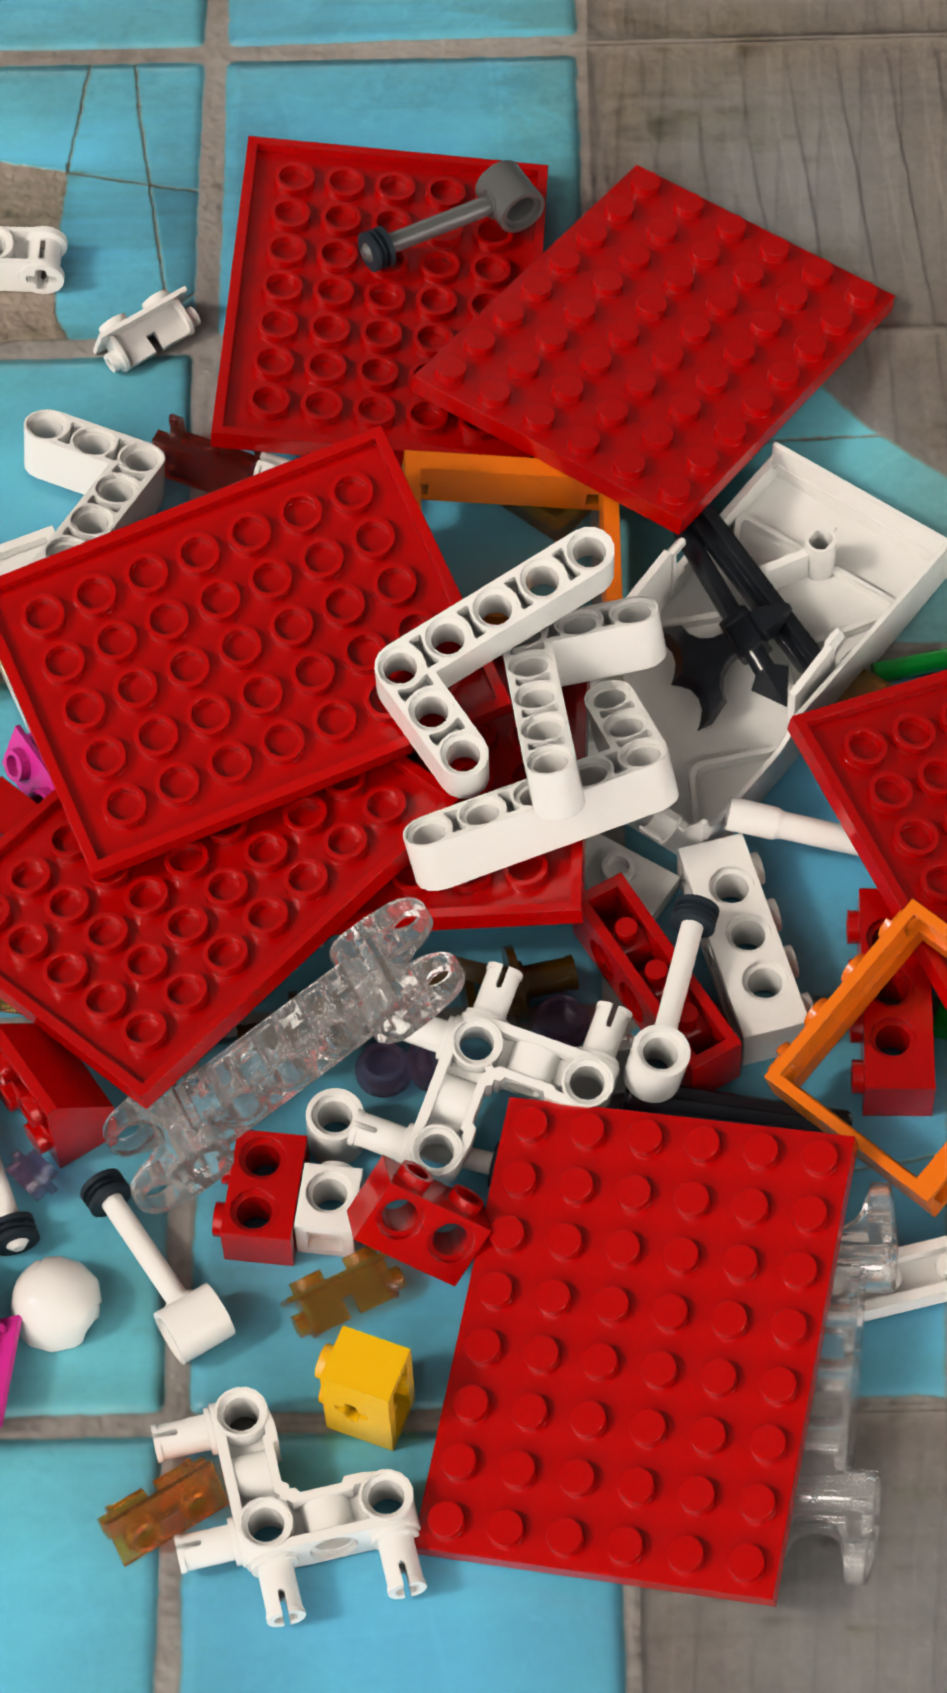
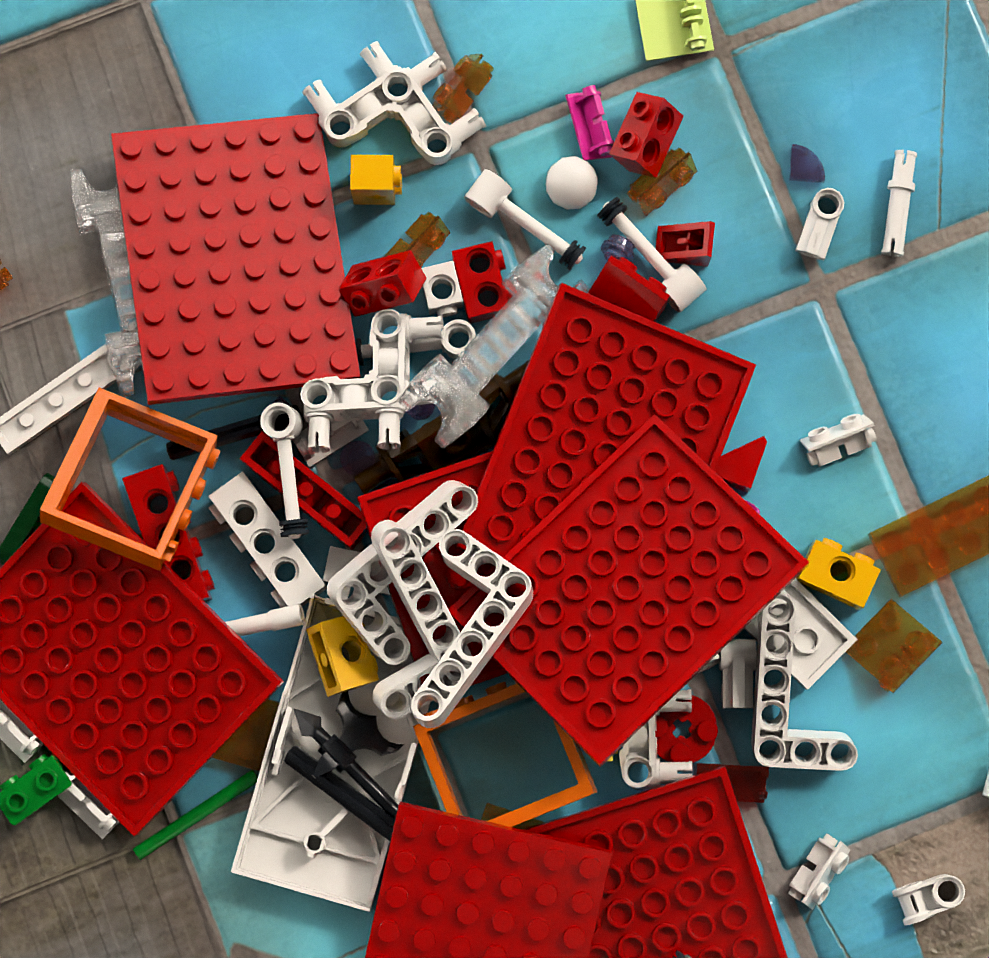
camera: 155 degrees right, 25 degrees up
(698, 739) = (337, 672): none -> yellow brick

